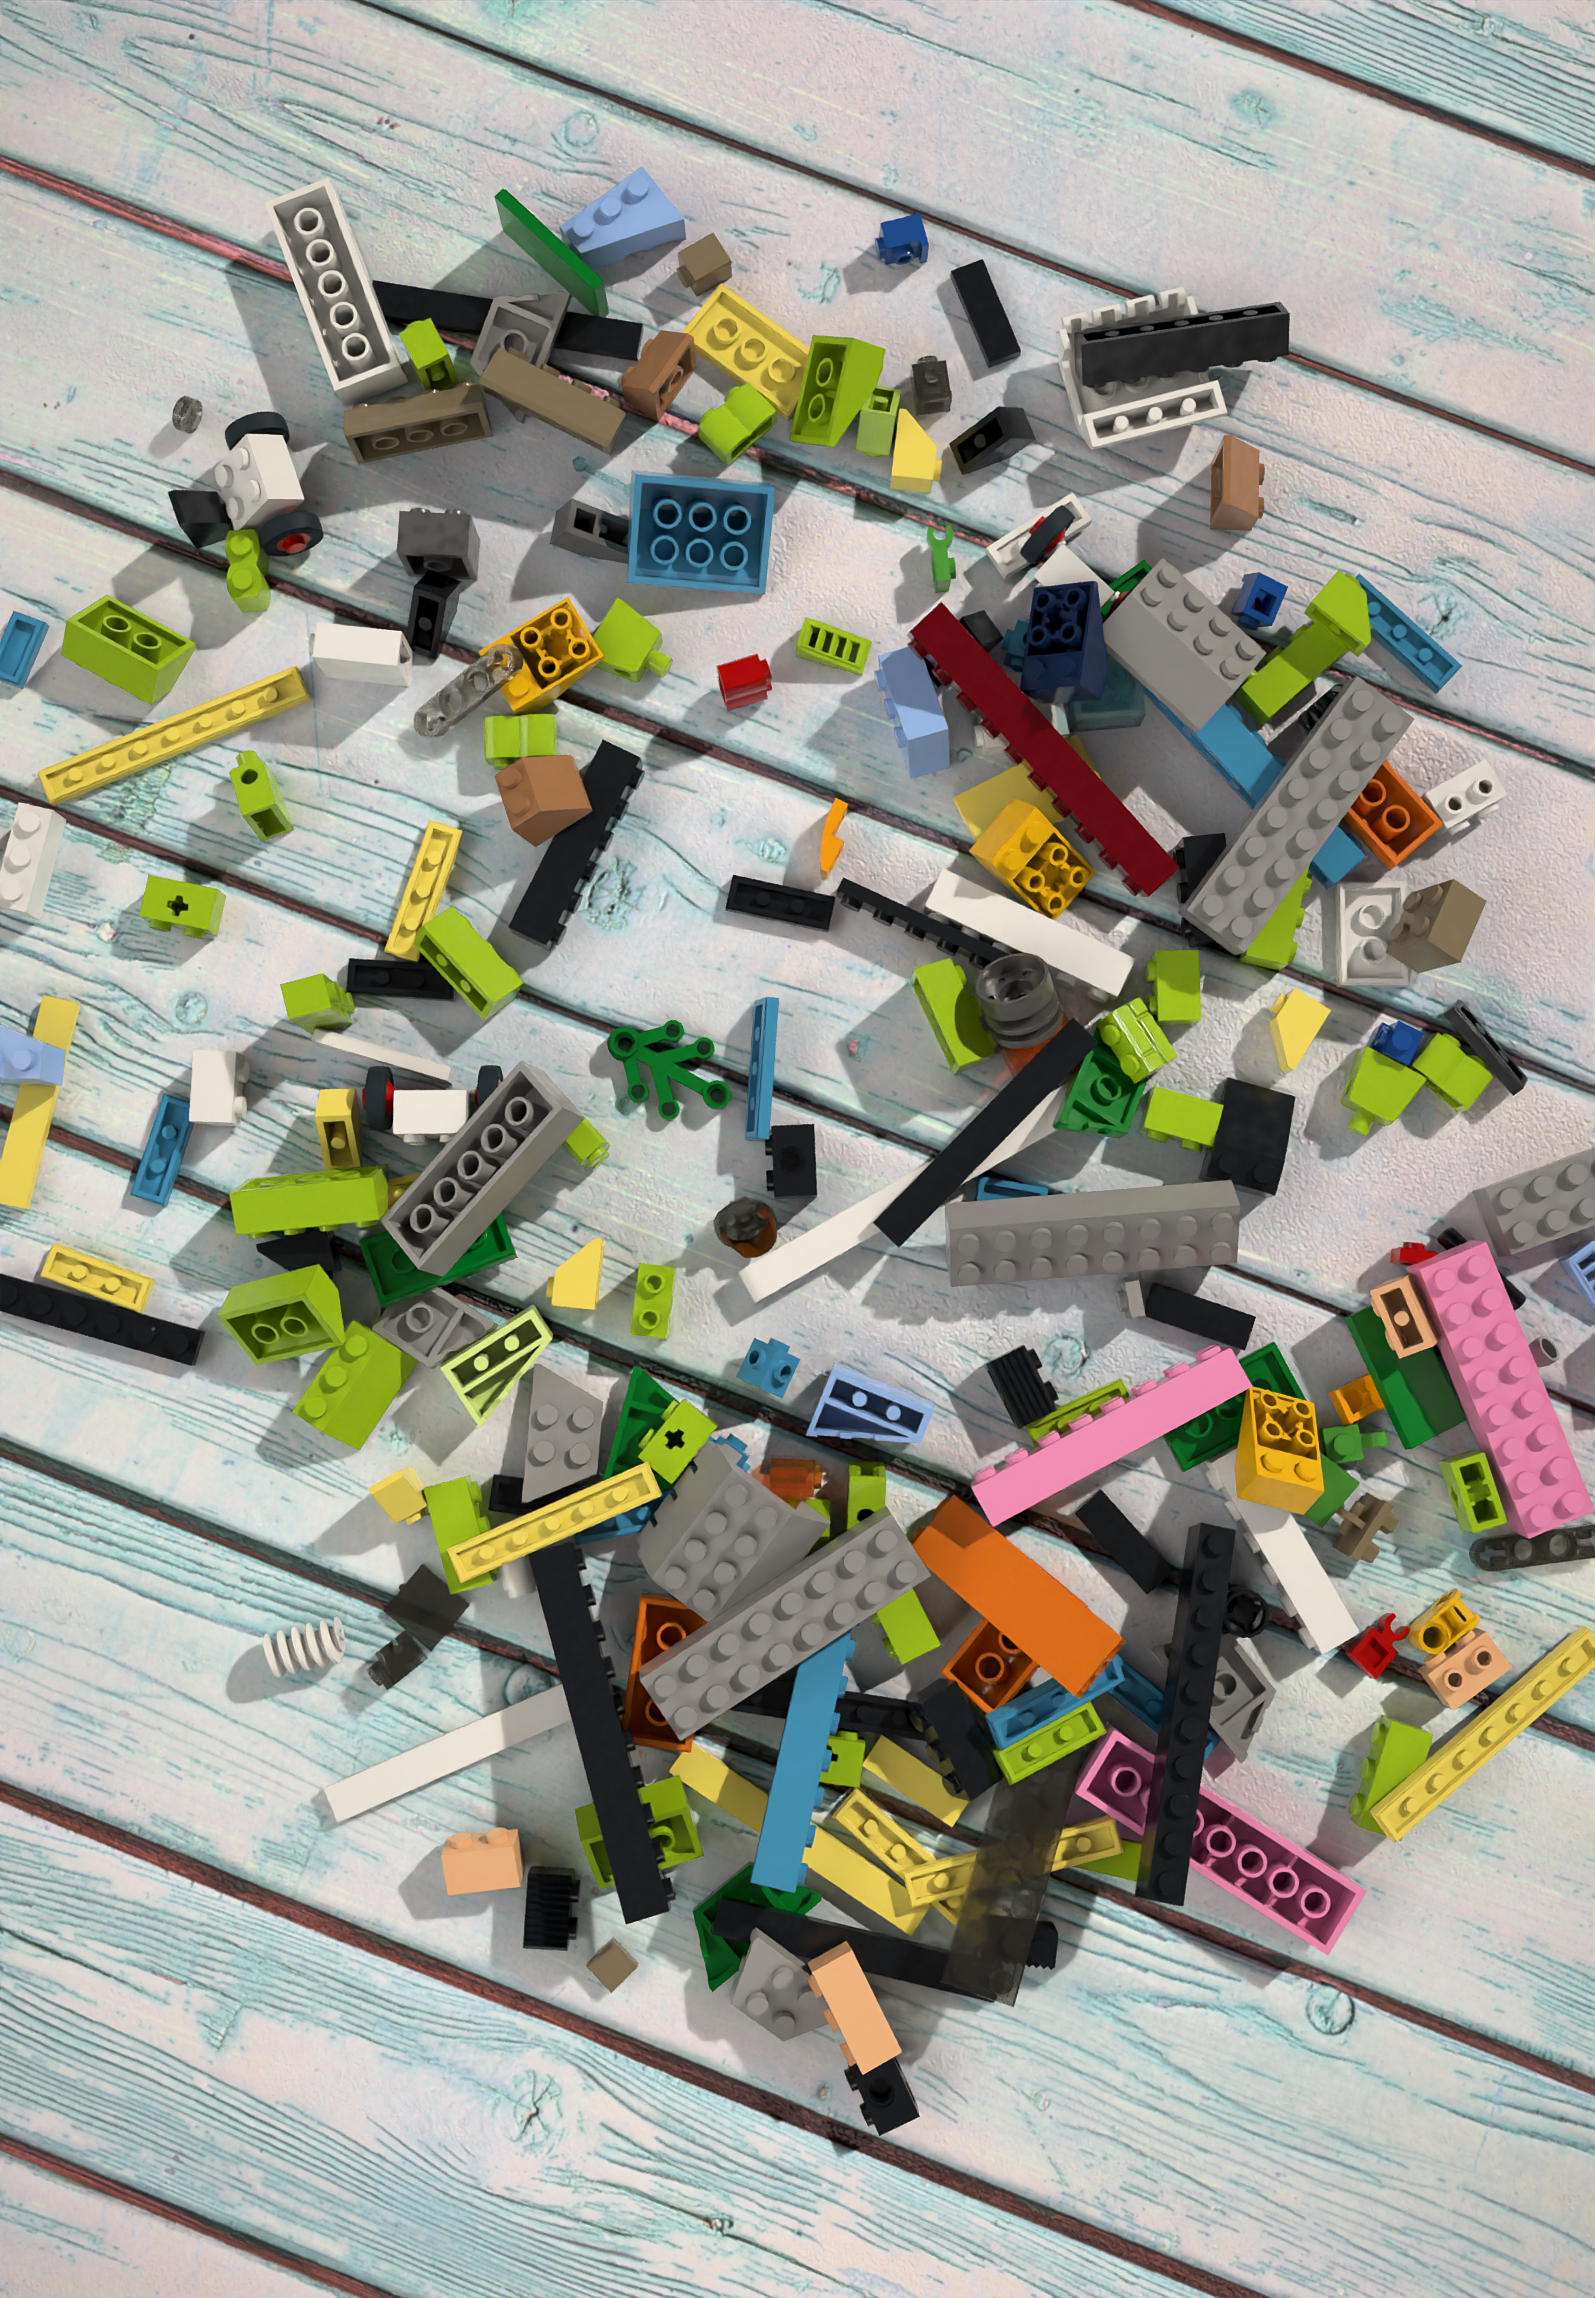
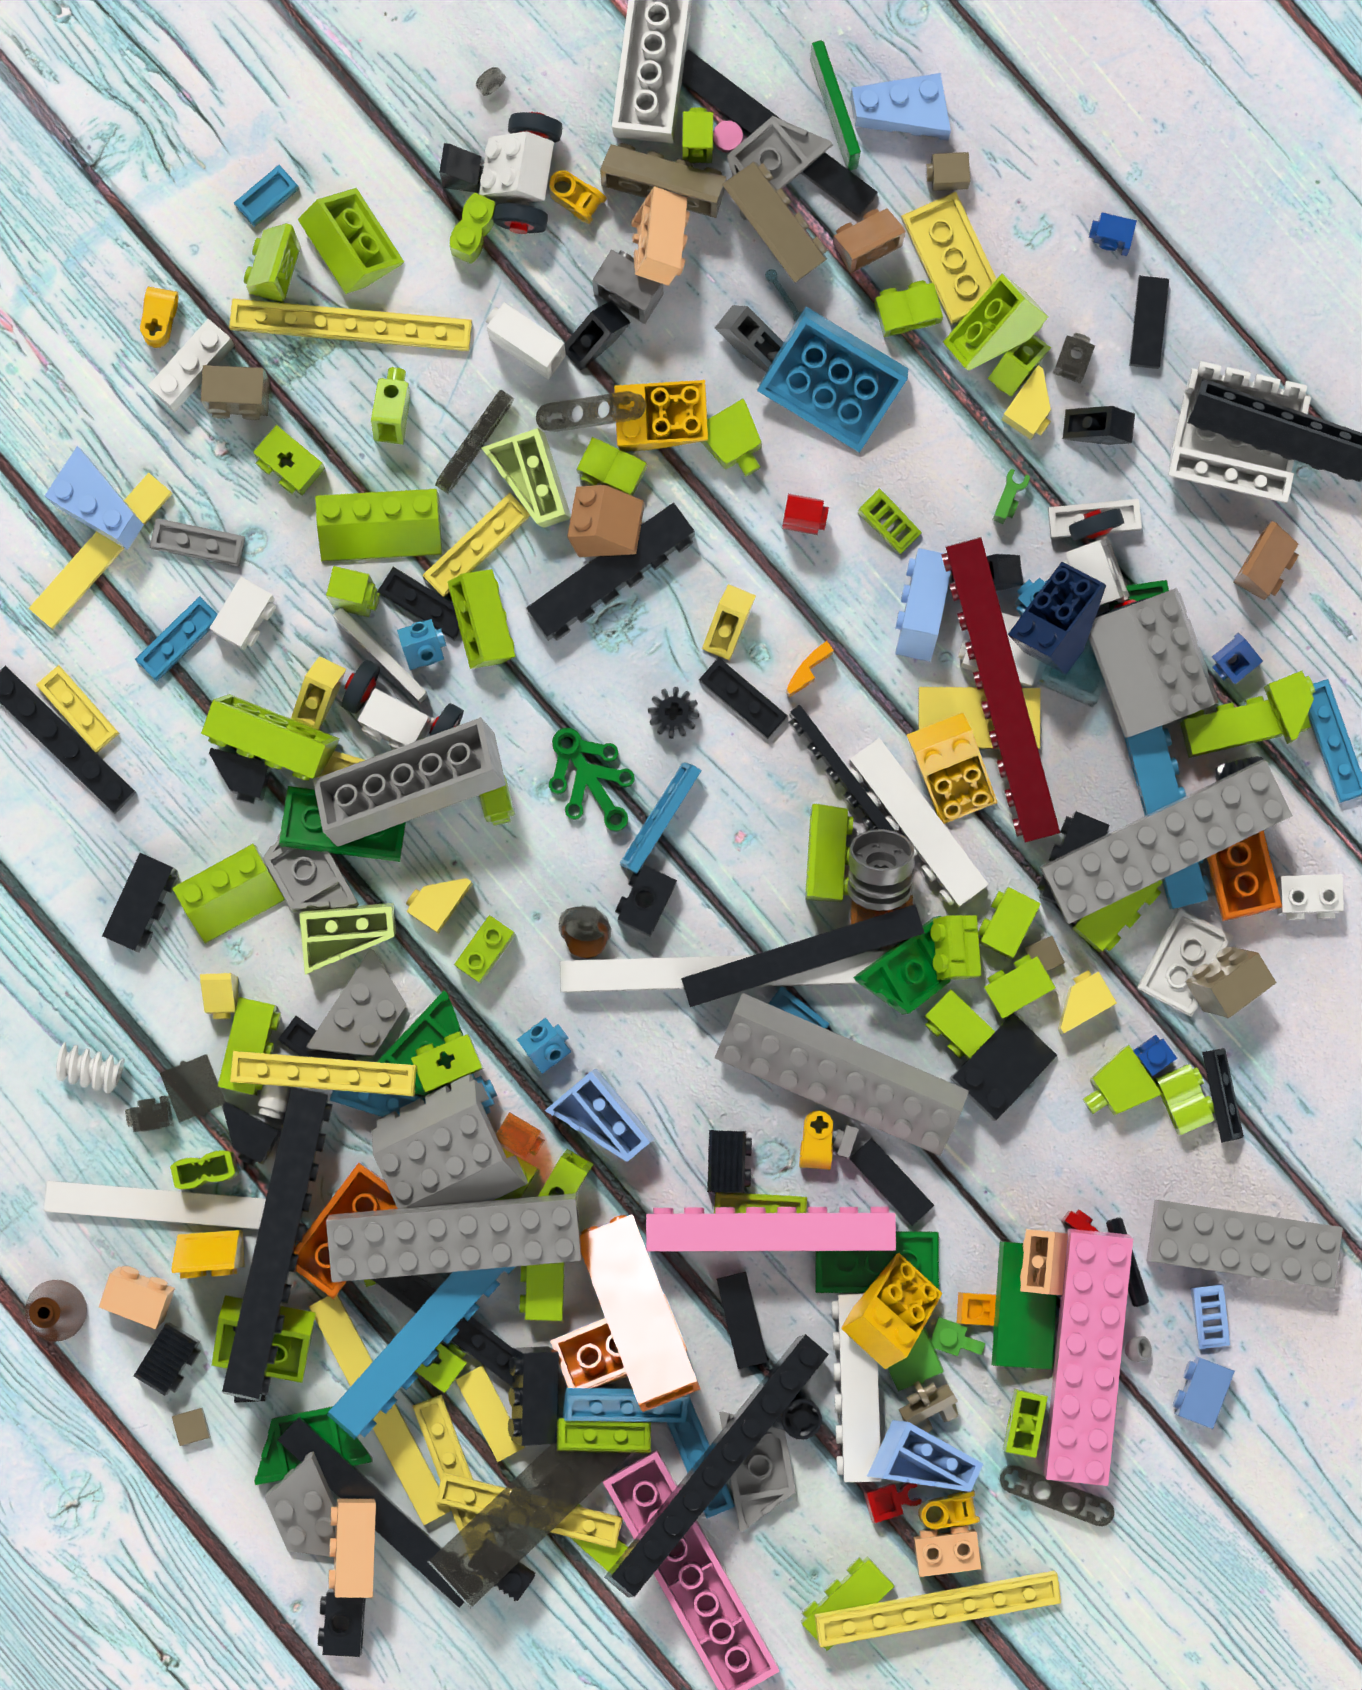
camera: 30 degrees right, 0 degrees up
(59, 710) = (273, 263): none -> lime slope
(87, 862) = (235, 391): none -> dark tan brick
(133, 1040) = (197, 542): none -> light grey tile
(269, 1445) = (140, 903): none -> black brick
(285, 1315) = (204, 812): lime slope -> none
(310, 922) = (378, 524): none -> lime slope
(342, 487) = (577, 196): none -> yellow piece
(365, 786) = (474, 441): none -> clear smoke beam
(404, 1920) = (66, 1310): none -> reddish brown cone
(420, 1021) = (421, 644): none -> dark azure brick
(442, 788) = (532, 475): none -> yellowish green wedge
(443, 471) = (660, 236): none -> light nougat wedge
(460, 346) = (727, 136): none -> bright pink tile
(477, 1693) = (212, 1167): none -> lime brick
(510, 1625) = (249, 1134): none -> black slope
(533, 1776) = (213, 1251): none -> yellow slope
(704, 954) = (681, 720): none -> black gear
(724, 833) = (728, 622): none -> light yellow slope
(1102, 1322) = (816, 1147): none -> yellow piece
(1221, 1045) = (1020, 986): none -> lime brick
(1227, 1002) = (1047, 953): none -> dark tan tile
(1391, 1588) = (922, 1459): none -> light blue wedge

